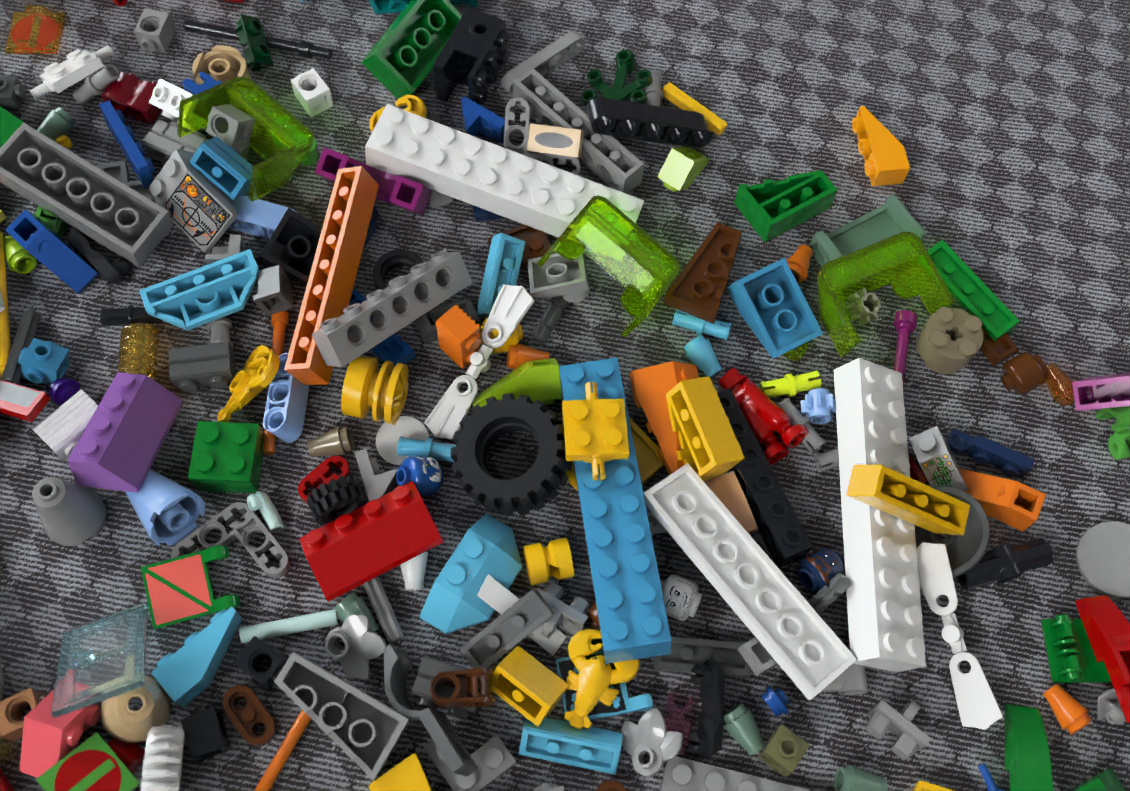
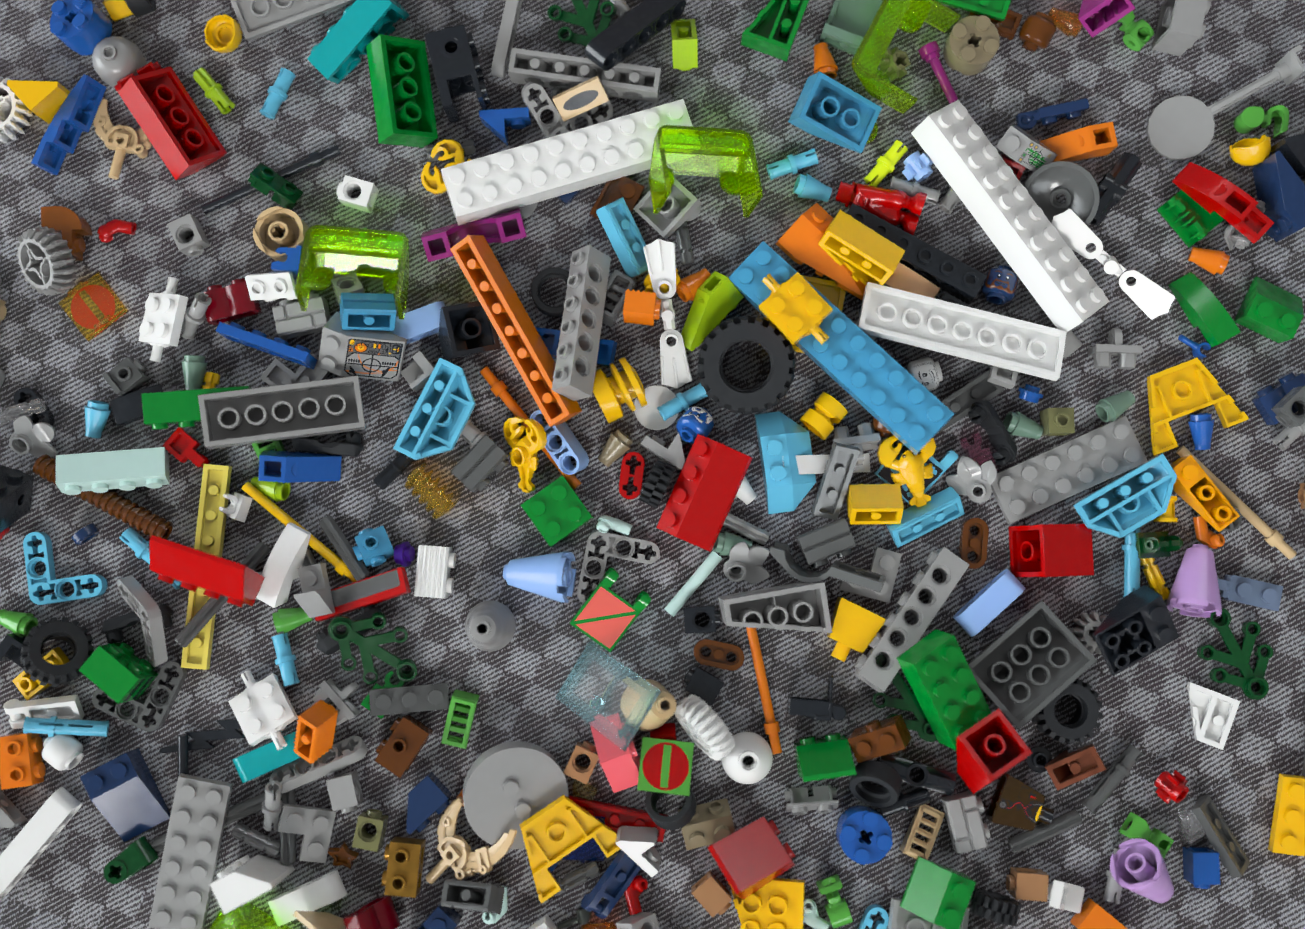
camera: 30 degrees left, 20 degrees up
(124, 434) = (482, 550): medium lavender slope -> none
(196, 663) = (659, 654): medium azure slope -> none
(230, 125) = (336, 274): light grey brick -> none
(273, 291) = (482, 373): dark grey brick -> none
(465, 688) = (845, 535): reddish brown piece -> none
(706, 275) = (768, 121): reddish brown wing -> none
(829, 593) = (1018, 299): dark grey axle -> none
(908, 499) = (1034, 201): yellow brick -> none

